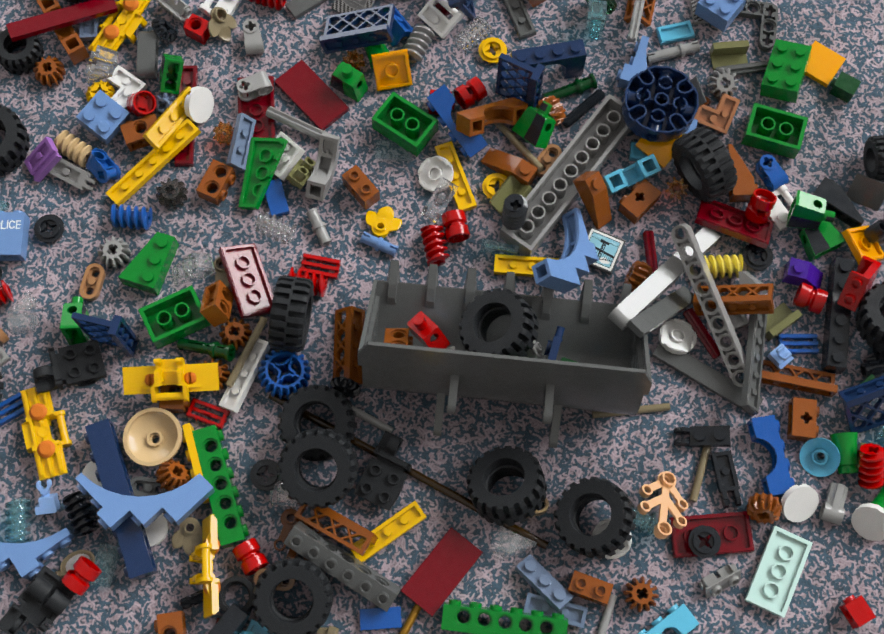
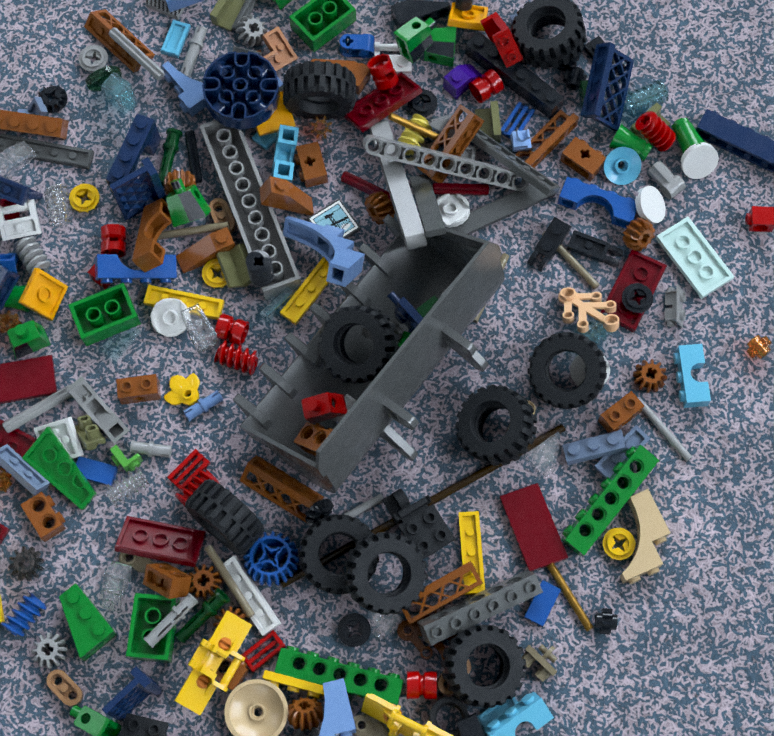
camera: 55 degrees left, 0 degrees up
(191, 326) = (178, 612): none -> light grey pin
(296, 209) = (120, 459): none -> bright green bracket
(727, 258) = (413, 126): none -> pearl gold bar

